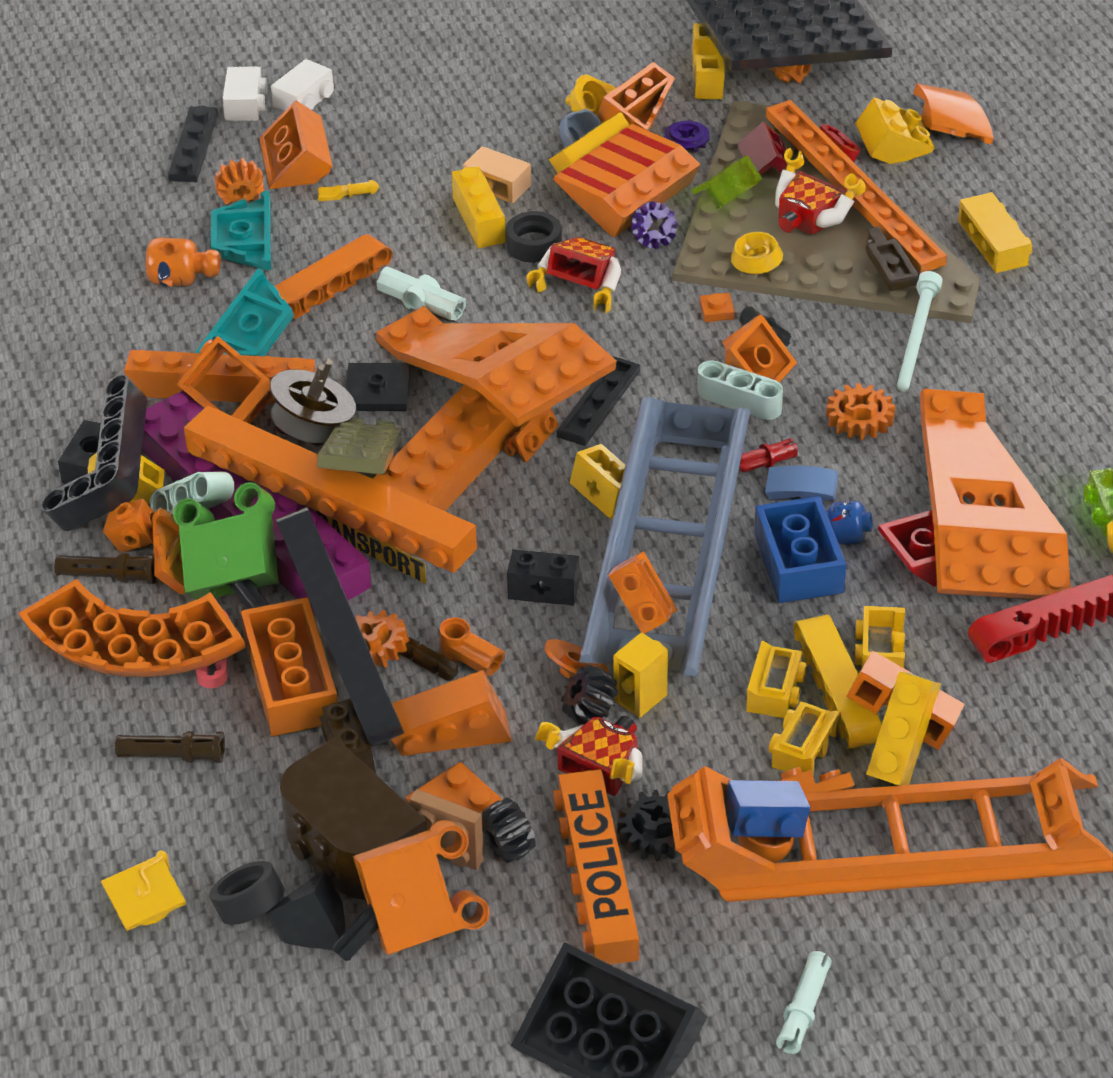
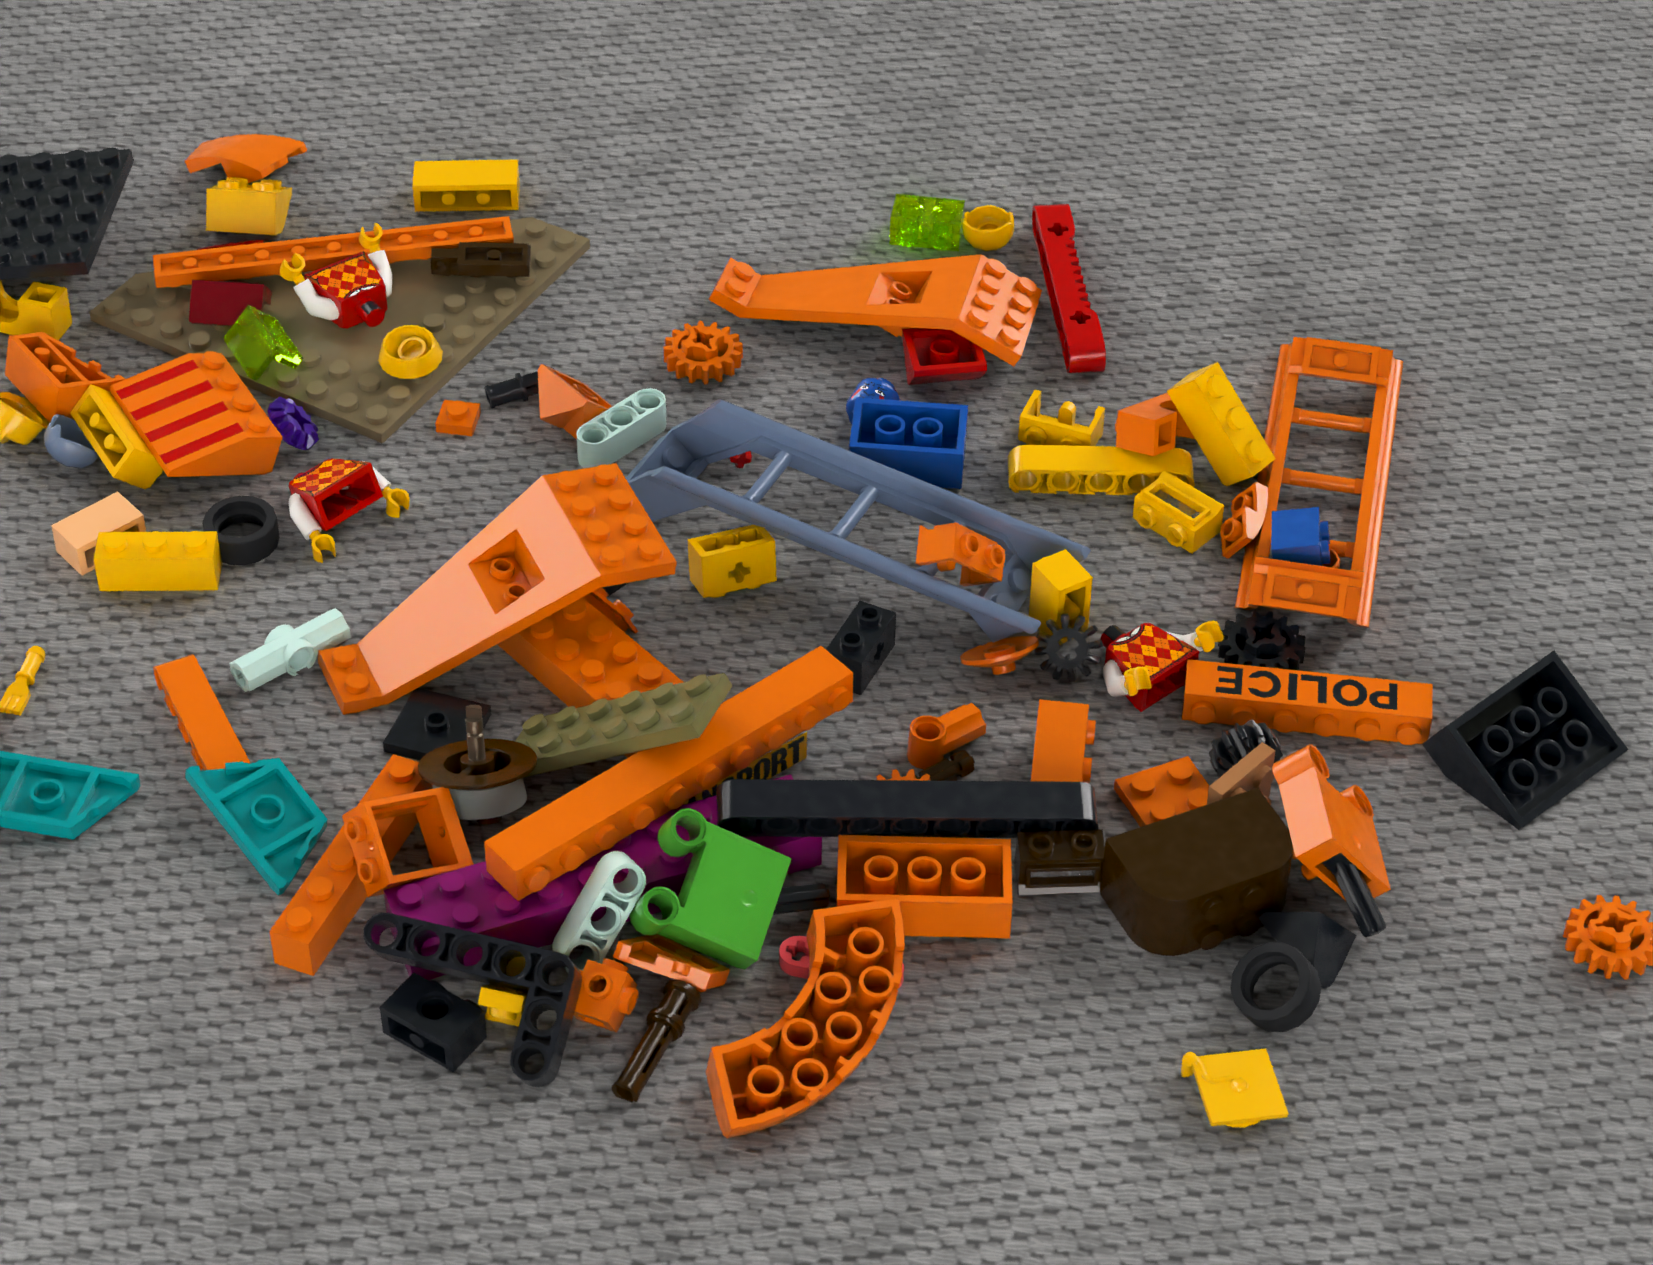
camera: 75 degrees left, 0 degrees up
(178, 262) = (87, 864): orange piece -> none
(186, 746) = (1014, 999): dark brown pin -> none
(699, 133) = (130, 355): dark purple gear -> none
(774, 681) = (1087, 507): yellow window -> none
(799, 1013) = (1517, 600): light aqua pin -> none
(802, 482) = (802, 412): medium blue slope -> none
(928, 287) = (546, 247): light aqua piece -> none

